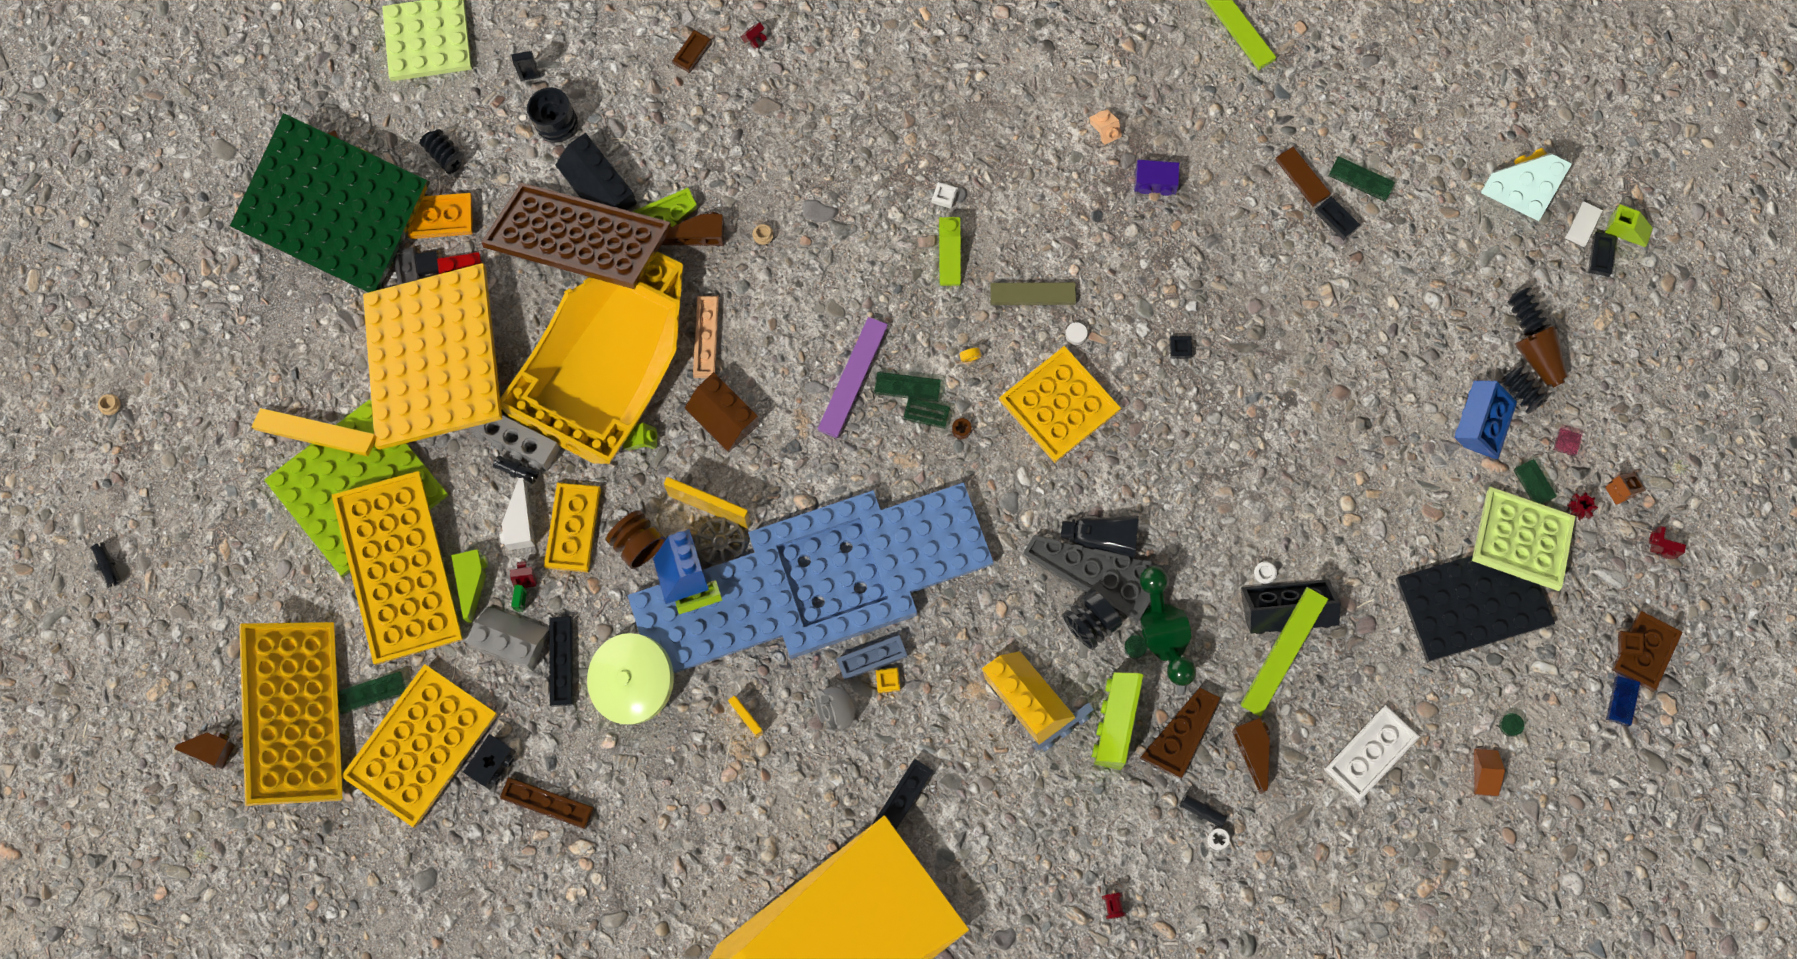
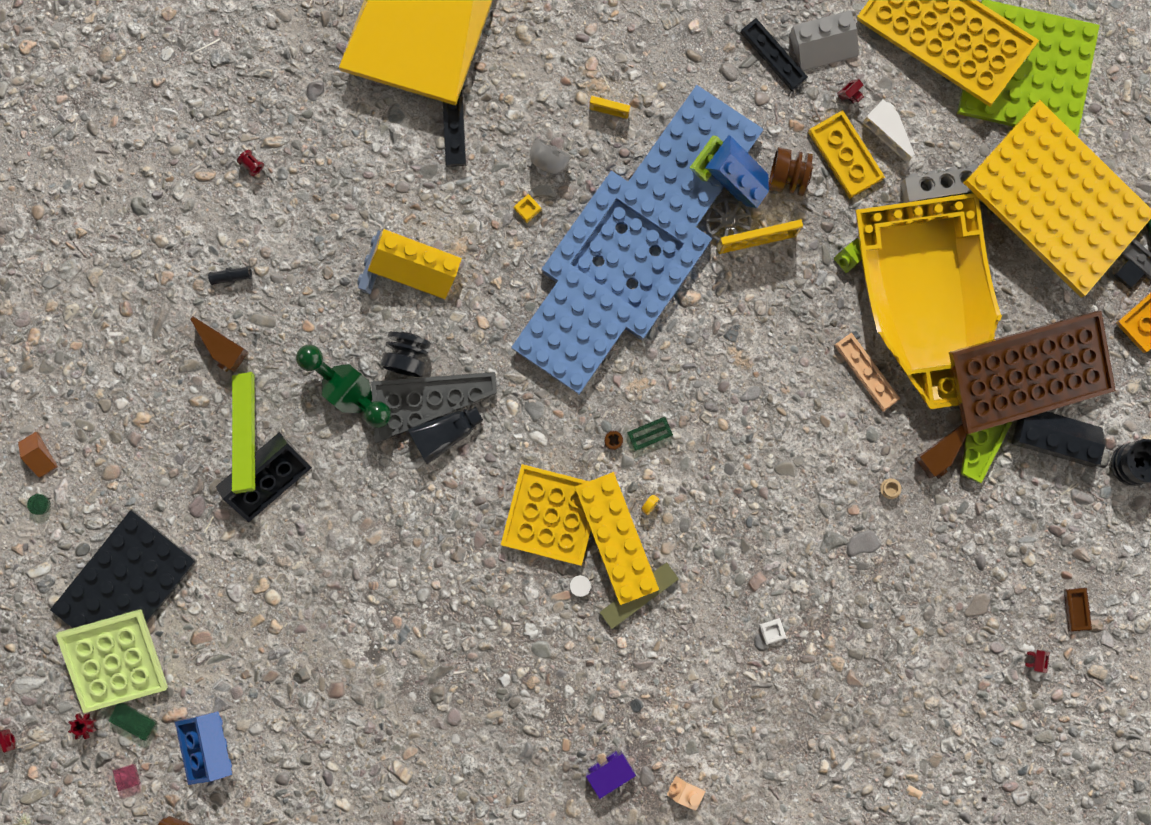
camera: 140 degrees right, 10 degrees up
(314, 432) = (1094, 81): yellow tile -> none
(458, 262) = (1103, 290): red plate -> none
(470, 578) = (889, 63): lime slope -> none
(515, 469) = (923, 165): black pin -> none
(519, 598) = (840, 73): green tile -> none
(630, 678) = (712, 72): yellowish green dish -> none
(721, 412) = (805, 319): reddish brown slope -> none
(852, 377) = (728, 421): medium lavender tile -> none
(871, 657) = (550, 214): sand blue plate -> none
(907, 386) = (680, 444): clear green tile -> none
(949, 251) = (731, 581): lime slope -> none
(1019, 346) = (616, 538): none -> yellow plate
(1118, 720) = (335, 294): lime slope -> none
(1135, 647) = (362, 363): clear green tile -> none
(1180, 347) = (489, 635): black tile -> none
(1180, 738) = (281, 314): reddish brown wing -> none
(1218, 846) = (204, 257): white bush -> none
(1265, 572) = (300, 492): white tile -> none
(1371, 753) = (132, 408): white tile -> none
(1525, 389) = (186, 798): black piece -> none
(1625, 487) = (56, 768): dark orange slope -> none

